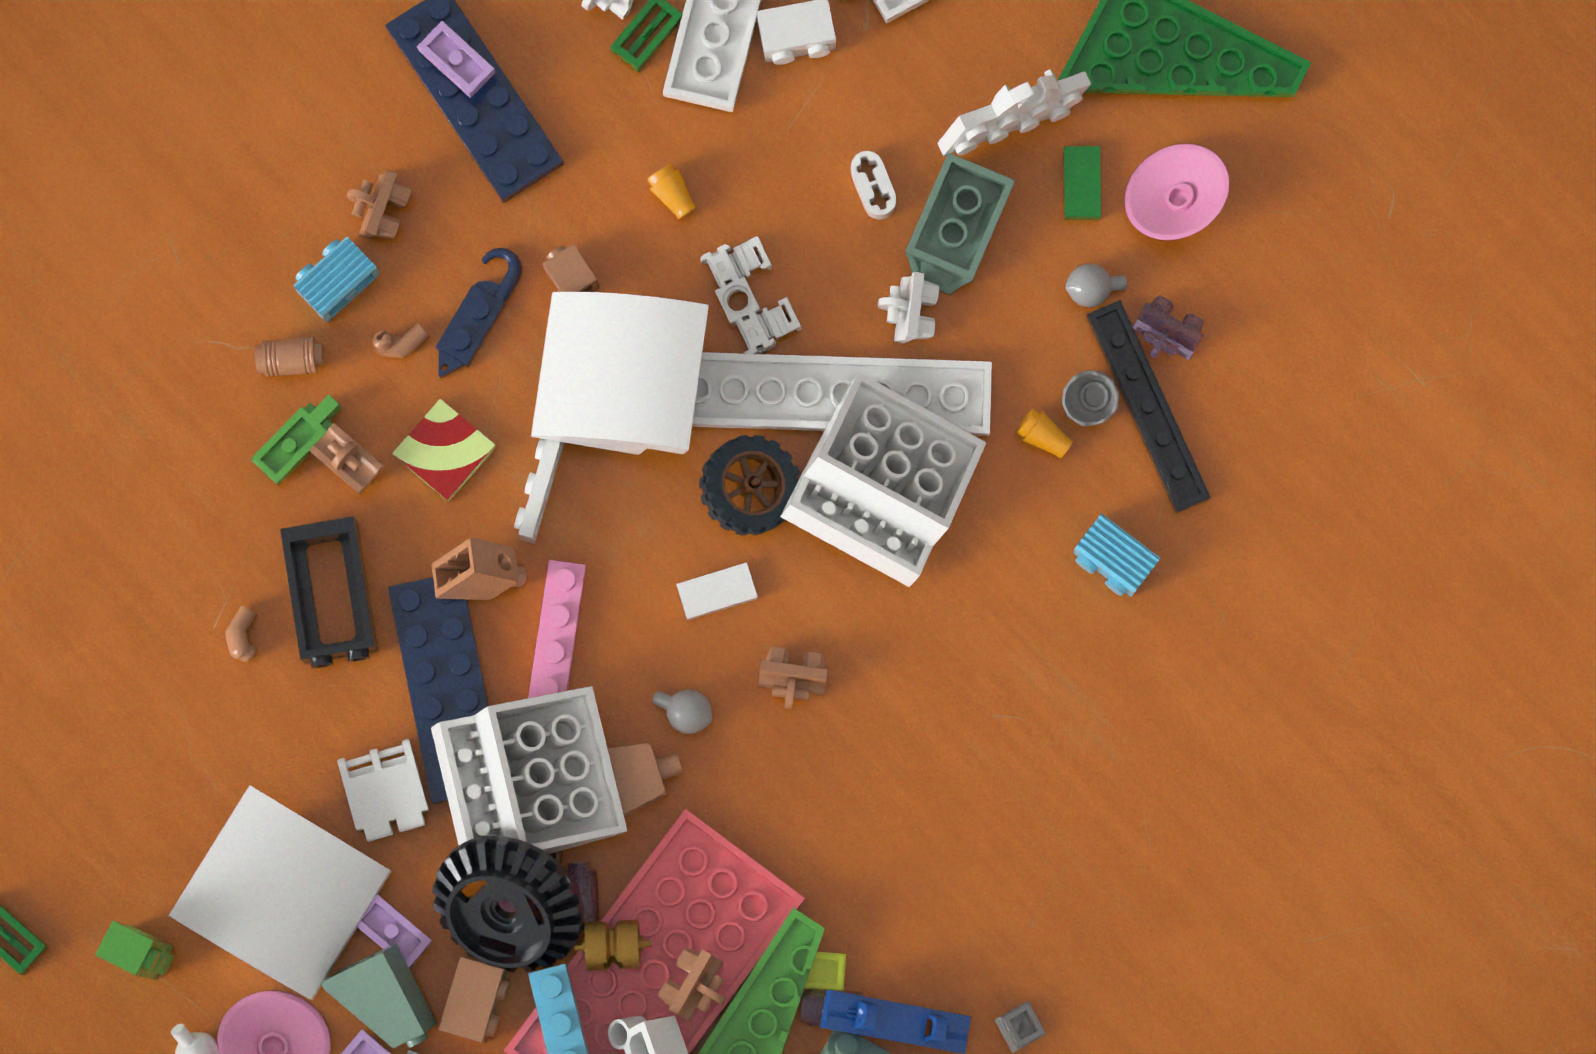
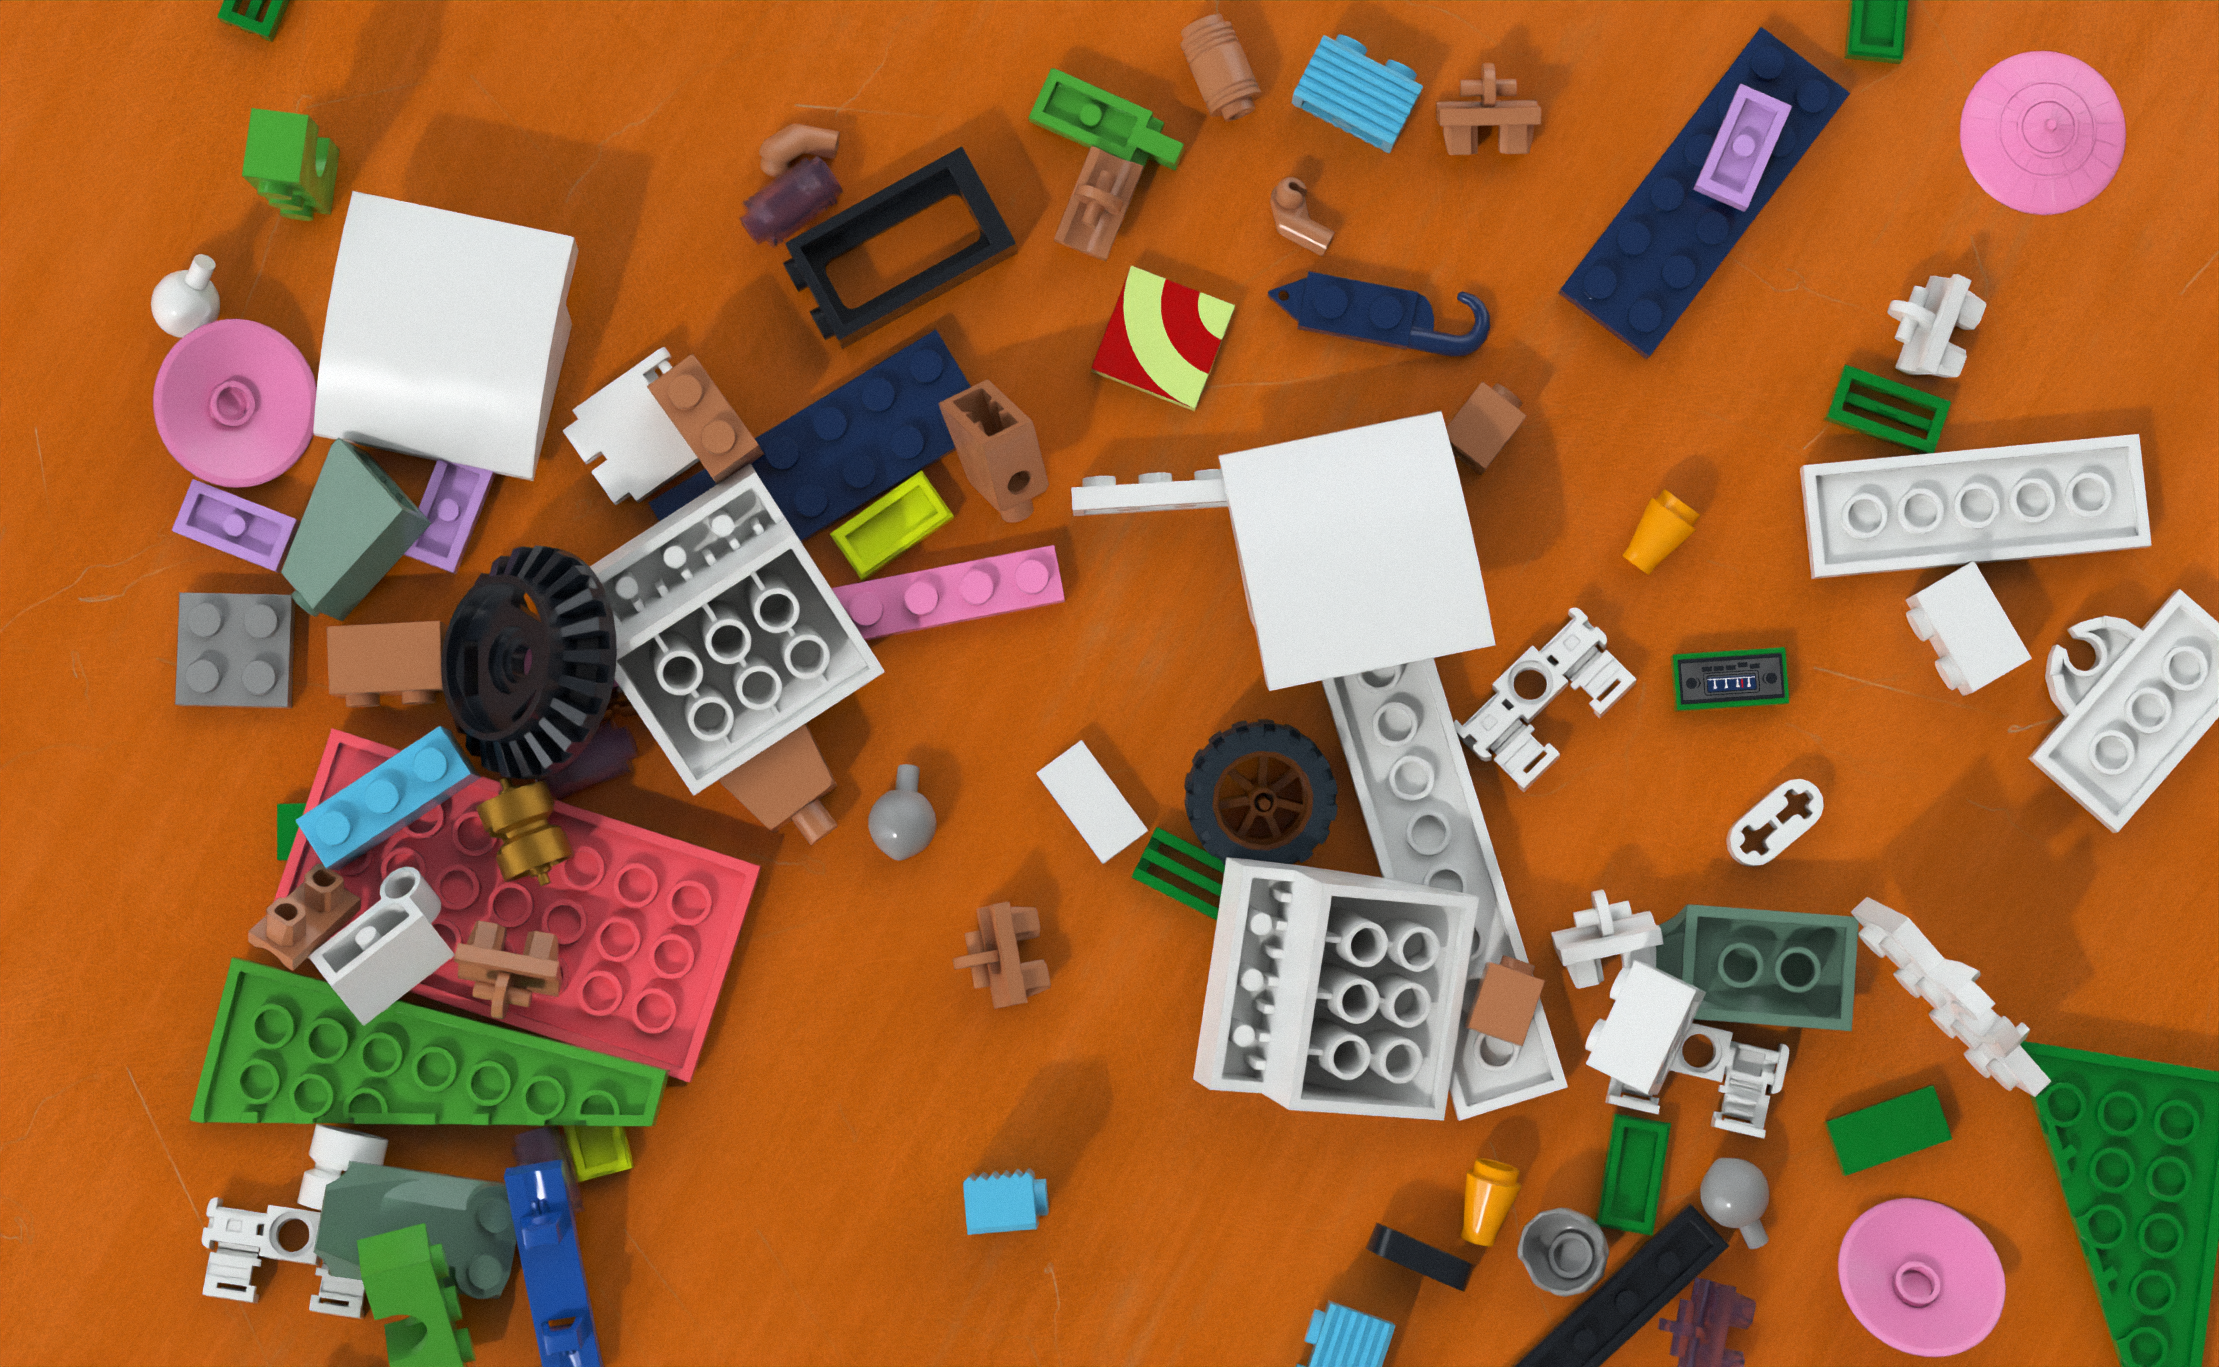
camera: 75 degrees right, 5 degrees up
(274, 650) = (790, 202): none -> head
(394, 745) = (705, 419): none -> nougat brick
(500, 657) = (892, 525): none -> neon yellow tile
(777, 181) = (1729, 679): none -> tile
(789, 561) = (1151, 855): none -> green tile
(926, 378) = (1505, 1000): none -> nougat brick
(945, 724) = (1004, 1201): none -> medium azure brick
(970, 301) = (1643, 1027): none -> white brick
(1014, 253) = (1747, 1075): none -> white piece
(1057, 342) = (1632, 1174): none -> green tile
(1064, 486) = (1420, 1257): none -> black beam

